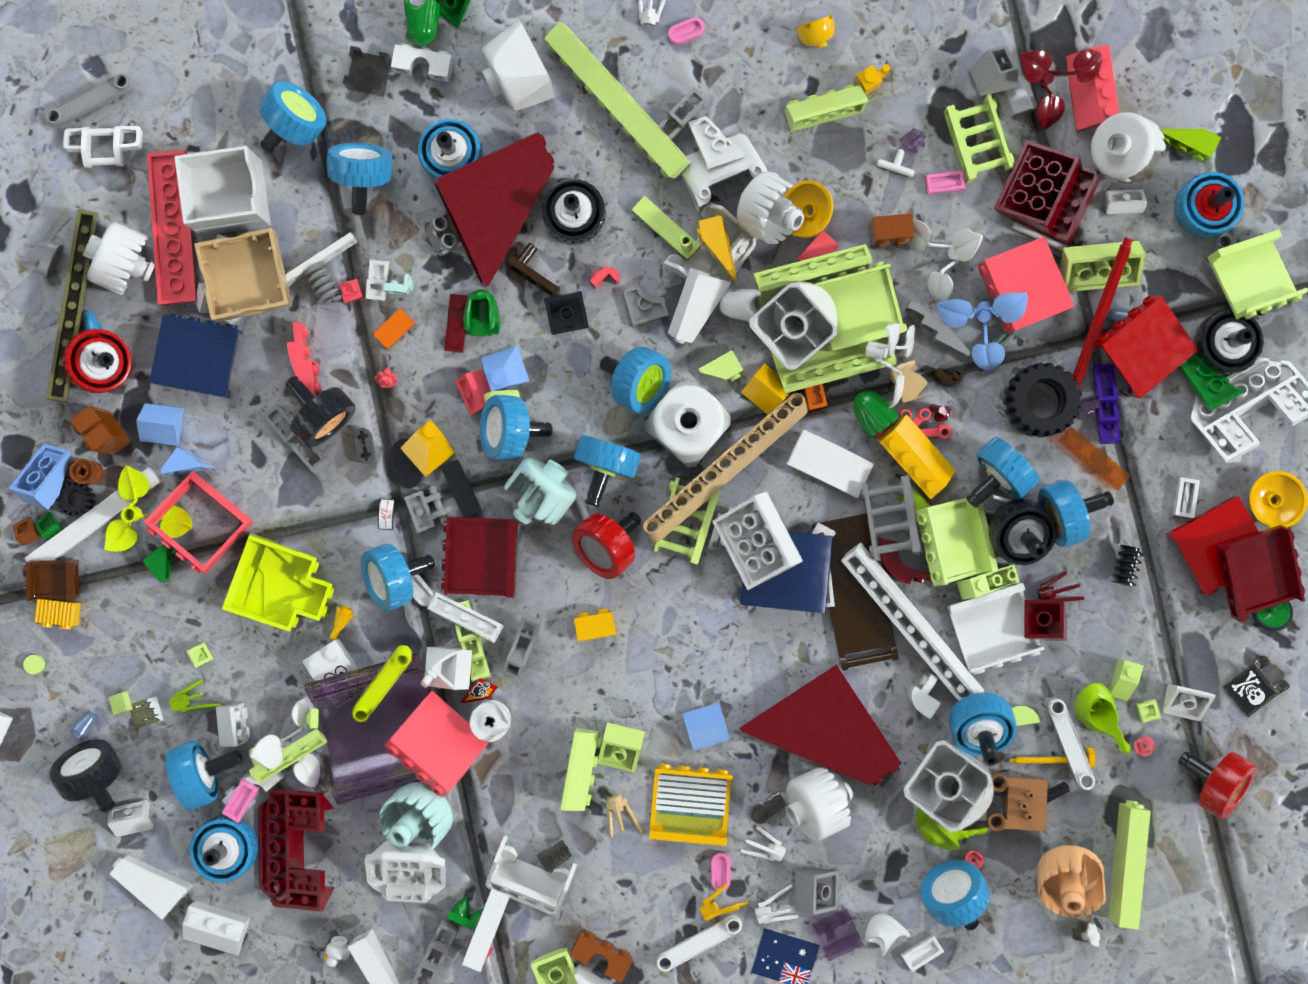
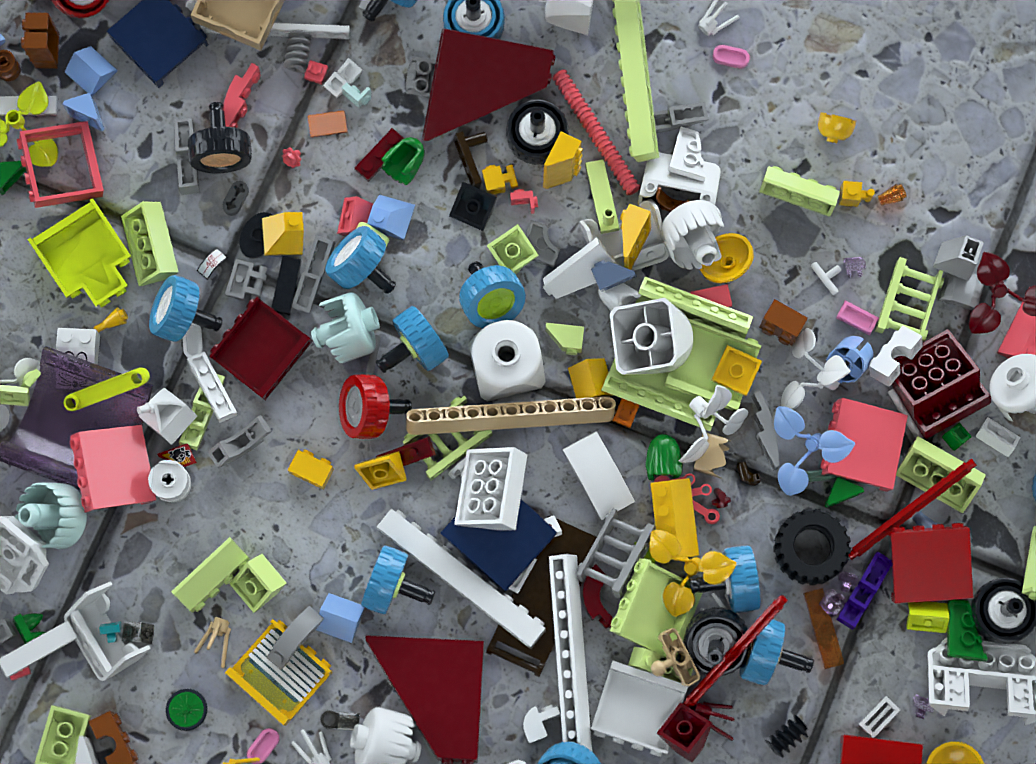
camera: 35 degrees right, 10 degrees down
(322, 535) = (149, 243): none -> yellowish green slope
(476, 463) = (313, 274): none -> light grey slope
(531, 870) = (110, 629): none -> teal tile
(568, 277) = (495, 180): none -> yellow brick
(618, 175) = (596, 132): none -> coral piece
(618, 221) = (563, 161): none -> yellow slope
(627, 327) = (513, 249): none -> yellowish green slope
(638, 887) = (186, 709): none -> green wheel
(653, 585) = (382, 470): none -> yellow slope
(664, 559) = (414, 451): none -> dark red plate
(684, 770) = (294, 637): none -> light grey arch
(726, 292) = (610, 275): none -> sand blue slope
(727, 673) = (388, 581): none -> dark azure wheel
(728, 195) = (666, 202): none -> dark orange helmet
(781, 627) = (461, 579): none -> white brick
(882, 298) = (736, 370): none -> yellow tile
(903, 56) = (892, 195): none -> clear orange cone
(966, 520) = (713, 564): none -> yellow plant
(967, 216) = (858, 360): none -> light blue cylinder
(991, 564) = (670, 648): none -> tan piece
(1000, 178) = (902, 343): none -> white arch
(1032, 338) = (842, 491): none -> green slope
(1048, 530) = (735, 651): none -> red piece
(1088, 432) = (832, 602): none -> clear purple tile
(1092, 225) = (956, 436): none -> green slope
(1171, 390) = (928, 616): none -> neon yellow panel
(1214, 465) = (922, 705): none -> clear purple tile

